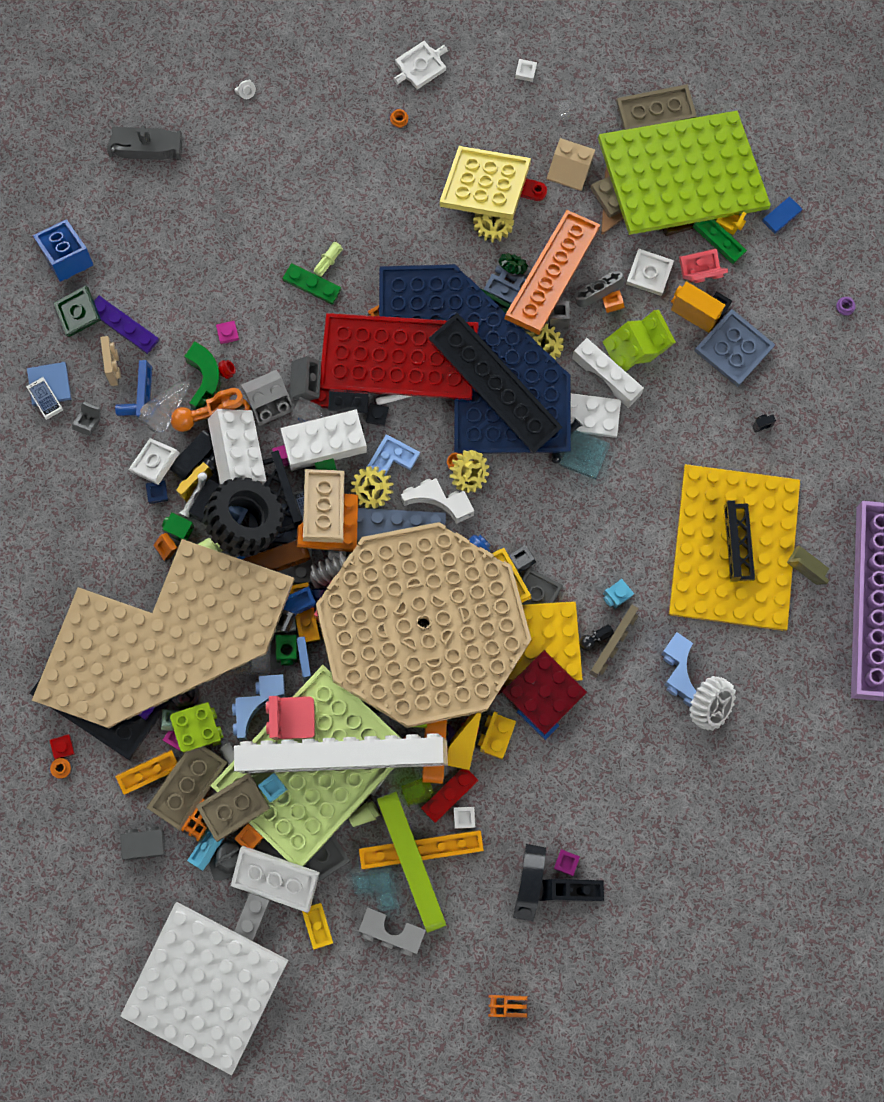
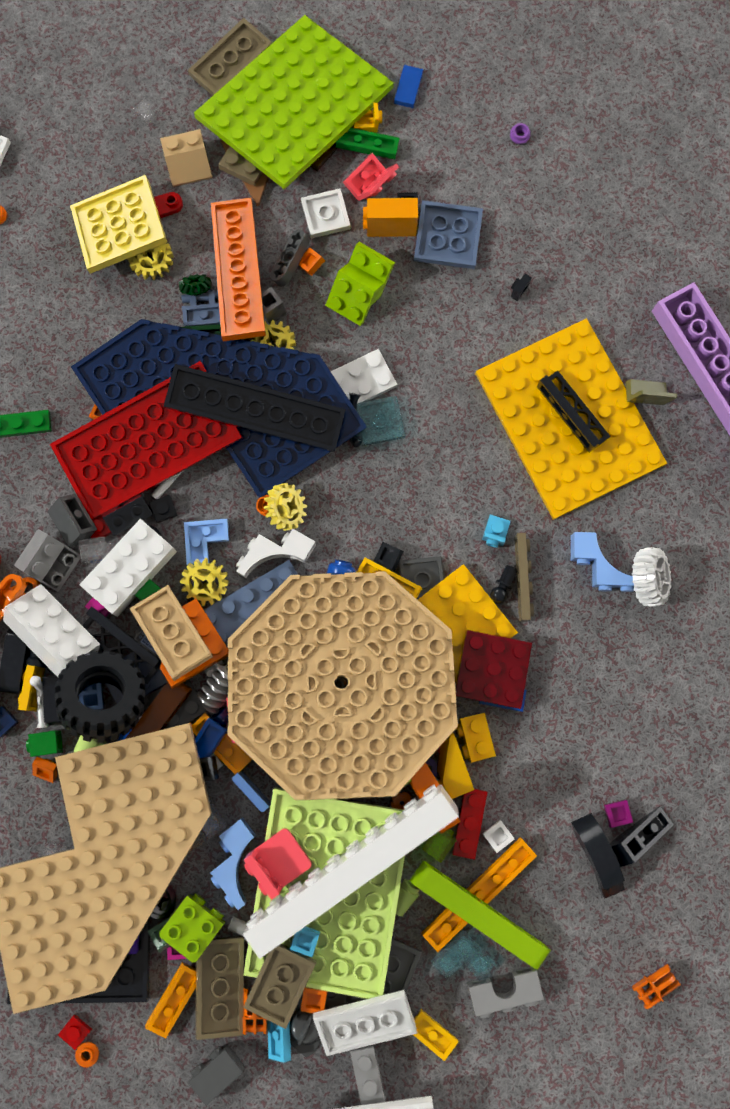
camera: 30 degrees left, 5 degrees up
(284, 641) = (217, 788): green brick -> none
(328, 258) = (17, 391): yellowish green axle -> none
(525, 70) = (85, 96): white plate -> none
(619, 381) = (331, 327): white arch -> none

